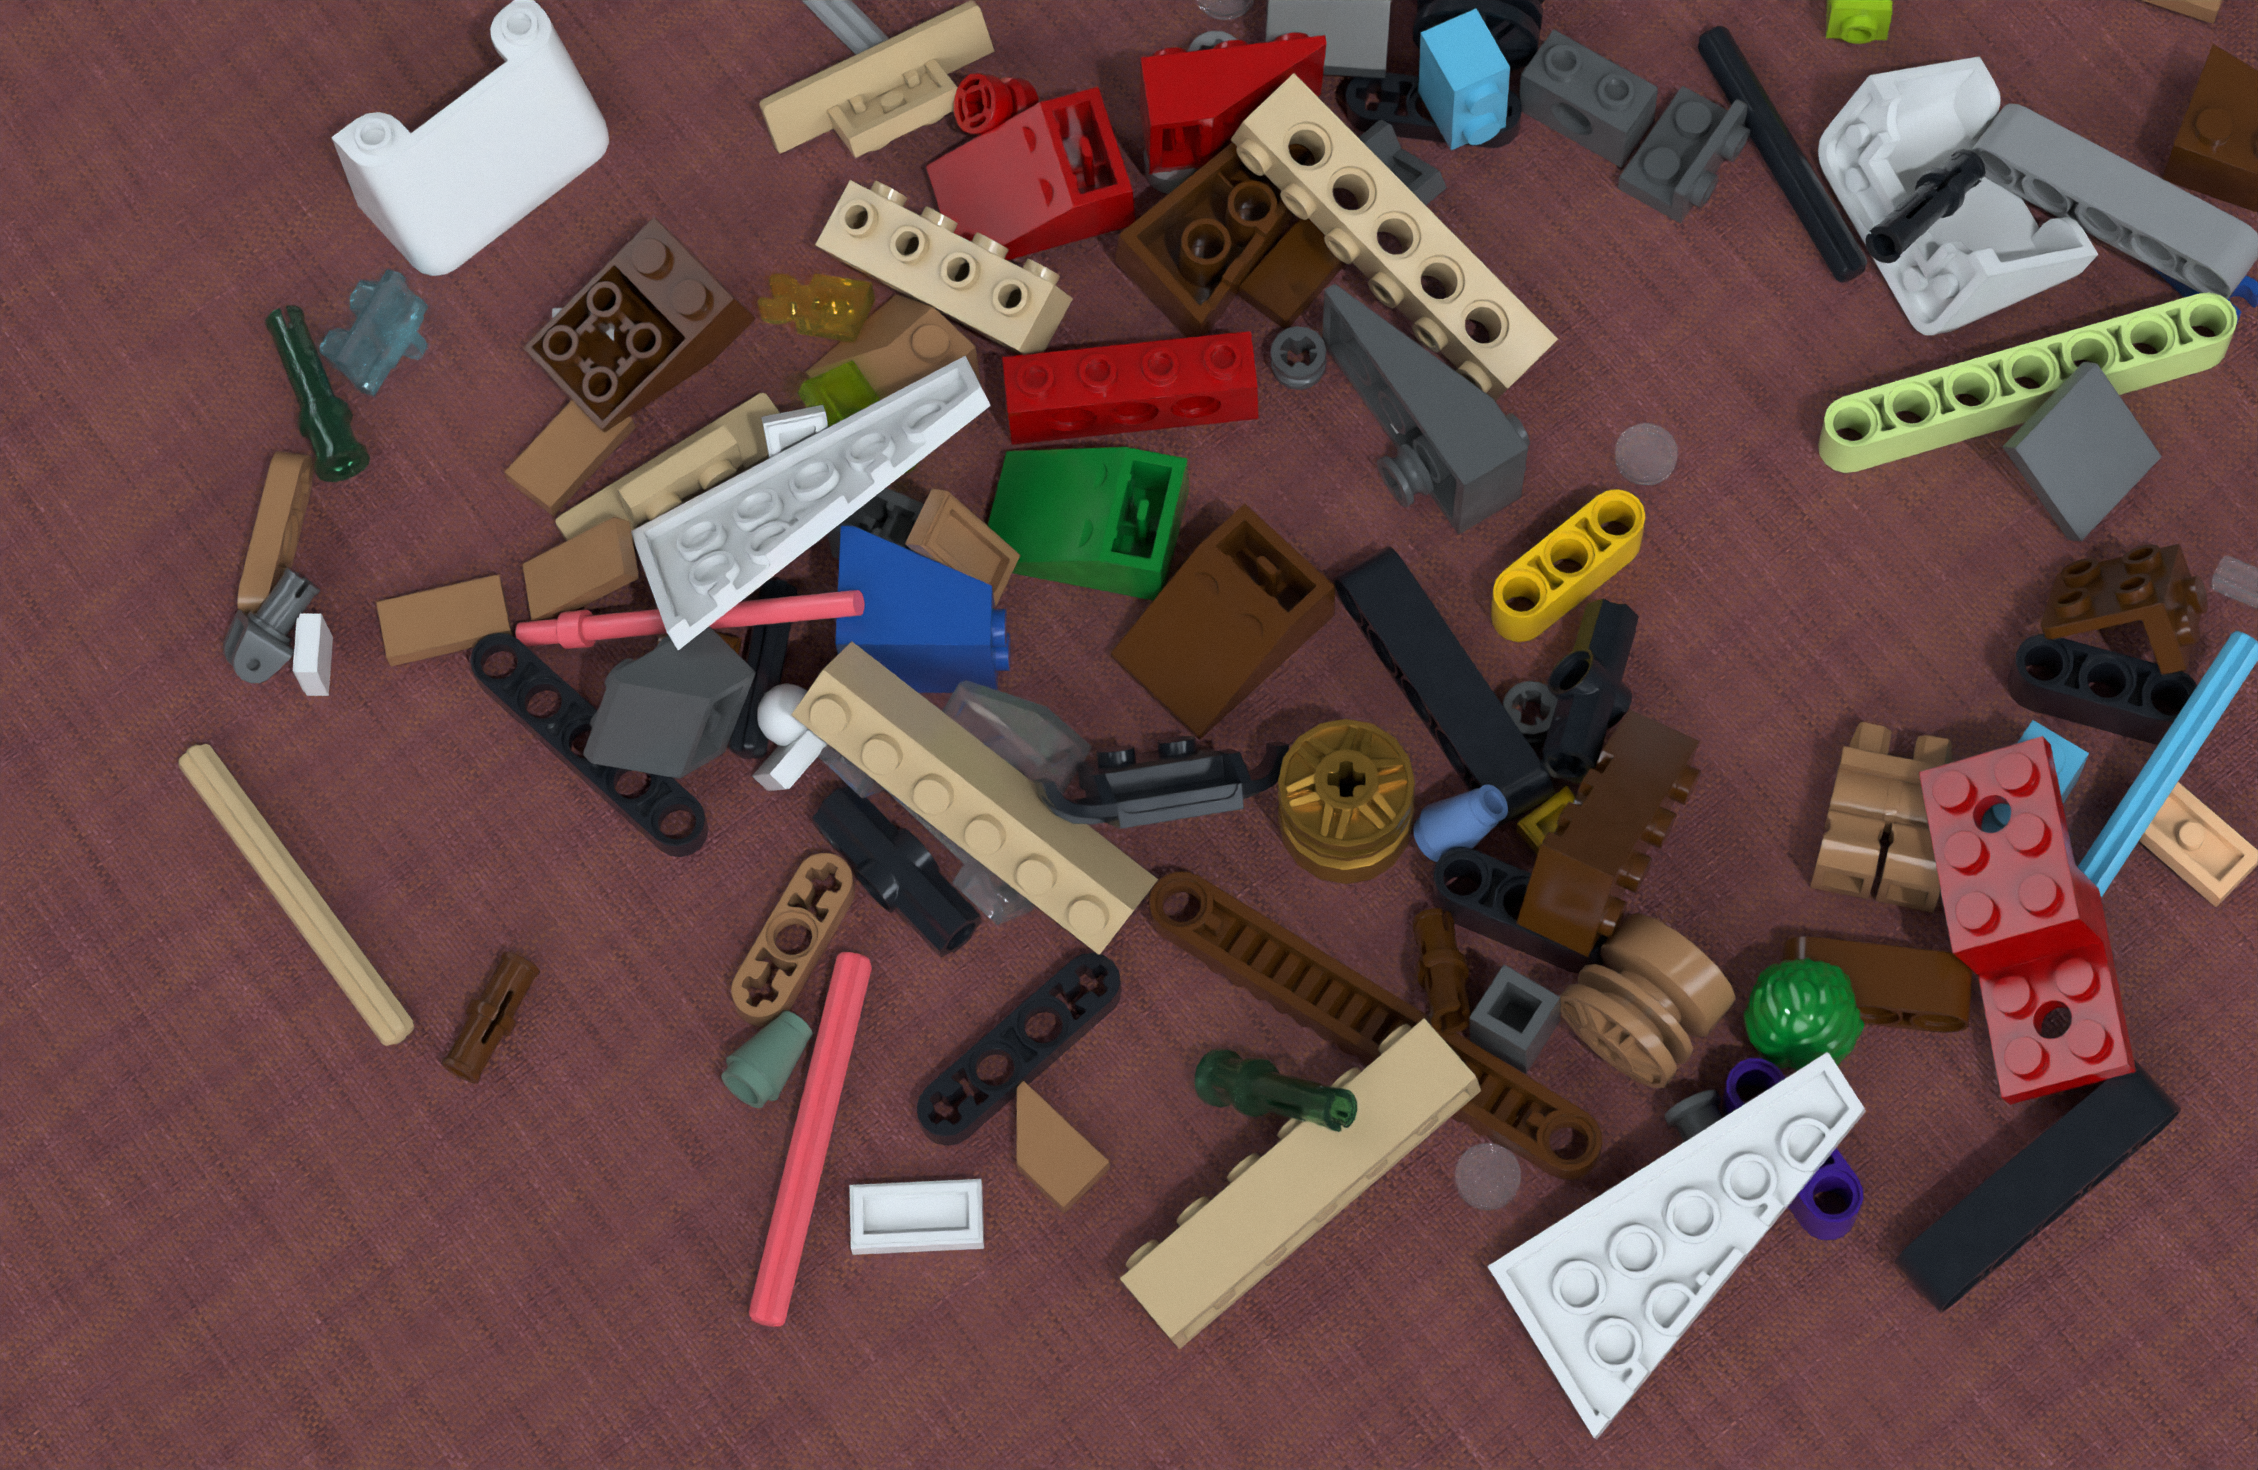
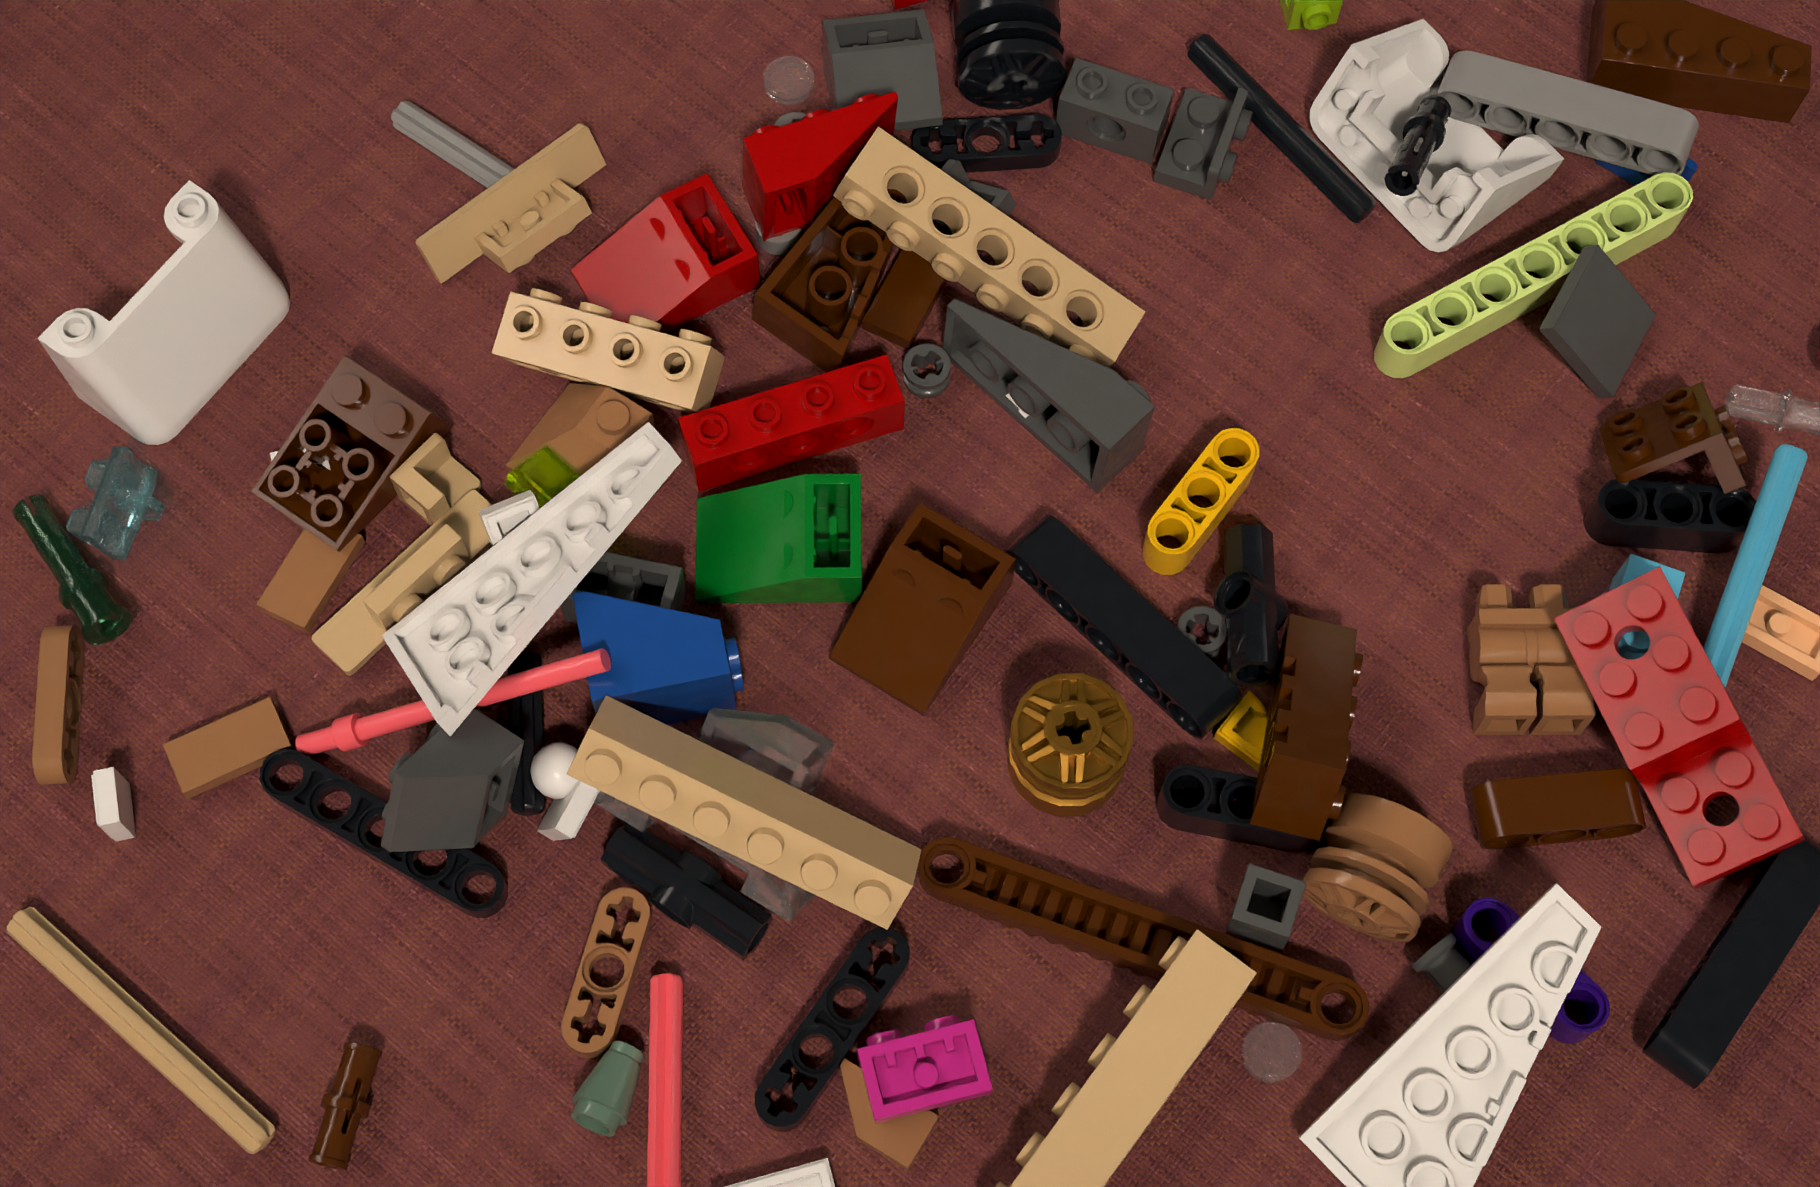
camera: 20 degrees left, 0 degrees up
(260, 640) = (61, 802): dark grey piece -> none
(581, 570) = (343, 678): medium nougat tile -> none
(722, 373) = (432, 480): none -> tan panel
(824, 309) = (511, 405): clear yellow plate -> none
(961, 541) = (681, 585): medium nougat tile -> none
(987, 101) = (613, 204): red wheel -> none
(1102, 1107) = (923, 1068): none -> dark pink bracket
(1162, 784) = (908, 763): black plate -> none
(1258, 1087) = (1059, 1022): clear green pin -> none
(1405, 475) = (1043, 451): dark grey bush -> none
(1442, 970) = (1189, 878): reddish brown pin -> none
(1459, 821) = (1170, 742): medium blue cone -> none
(1464, 80) = (1015, 110): medium azure brick -> none
(1646, 454) = (1236, 394): clear piece -> none
(1802, 1013) = (1509, 850): green hair -> none

